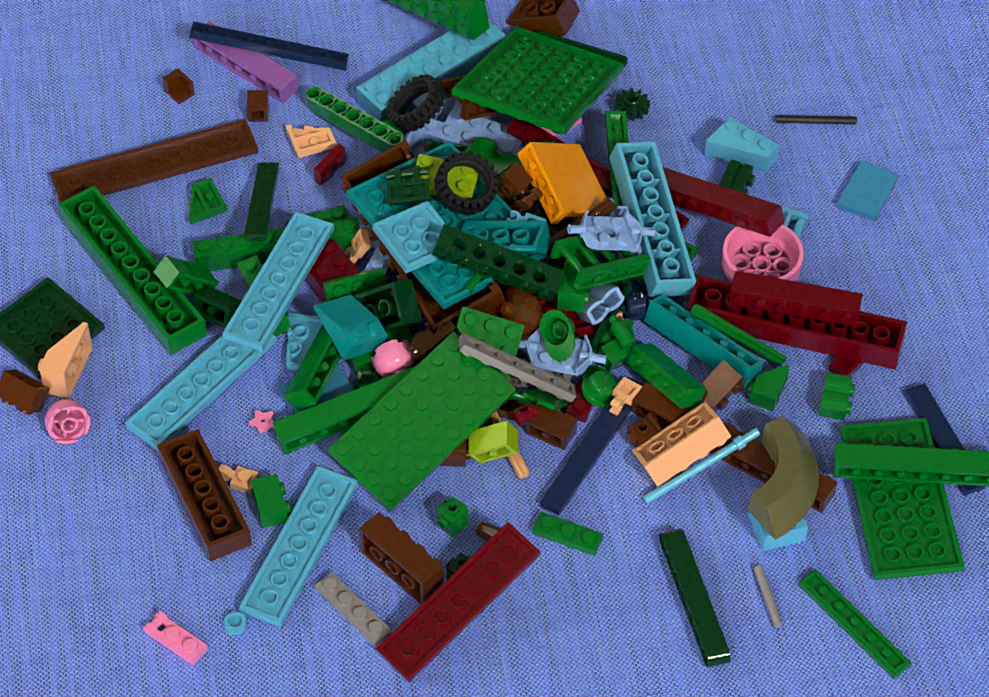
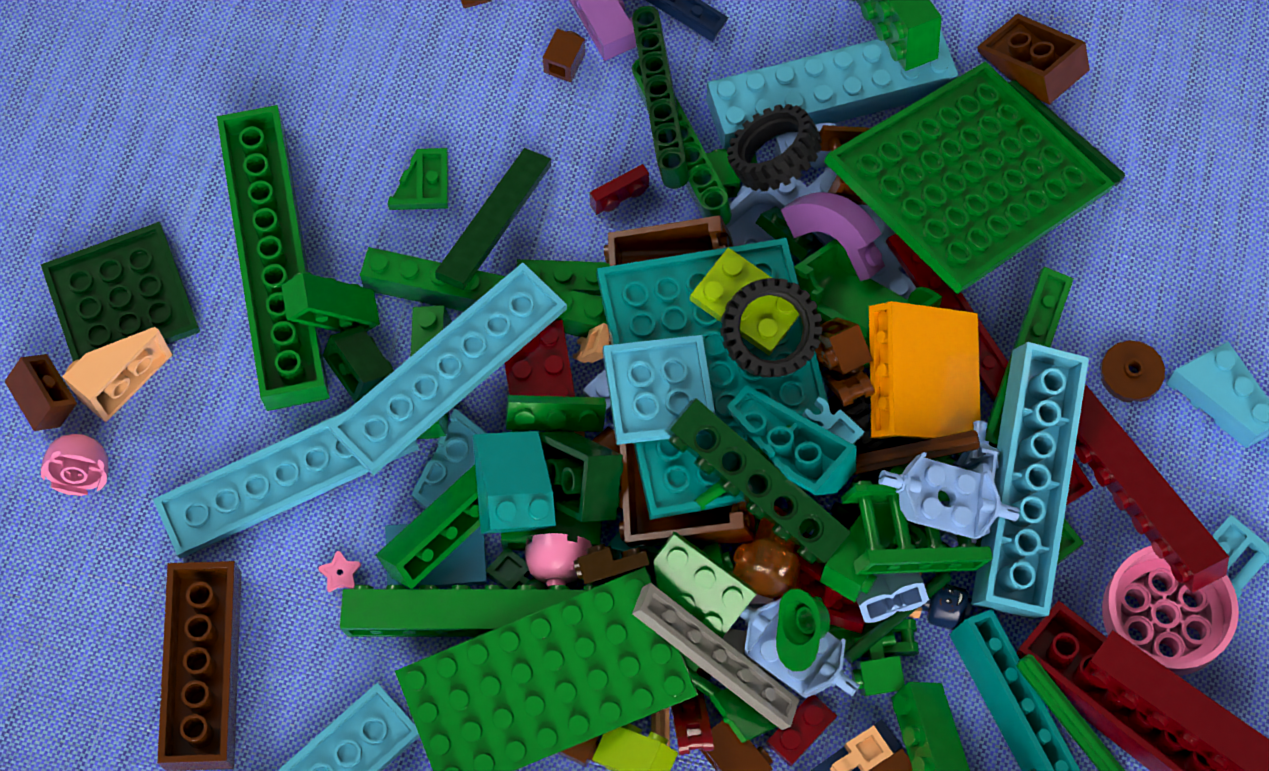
camera: 25 degrees right, 15 degrees up
(157, 161) = (387, 92): reddish brown plate -> none
(239, 479) = (269, 654): light nougat plate -> none
(269, 500) = (288, 711): green brick -> none
(310, 140) = (611, 138): light nougat wing -> none
(334, 99) = (660, 97): none -> dark green beam
(408, 191) = (682, 310): dark green plate -> none
(479, 124) = (841, 220): none -> medium lavender arch
(598, 385) = (832, 720): green piece -> none
(623, 331) = (904, 653): green plant -> none
(632, 103) = (1109, 258): dark green gear -> none
(682, 155) = (1128, 385): none -> reddish brown plate
(738, 177) = (1189, 452): dark green brick -> none

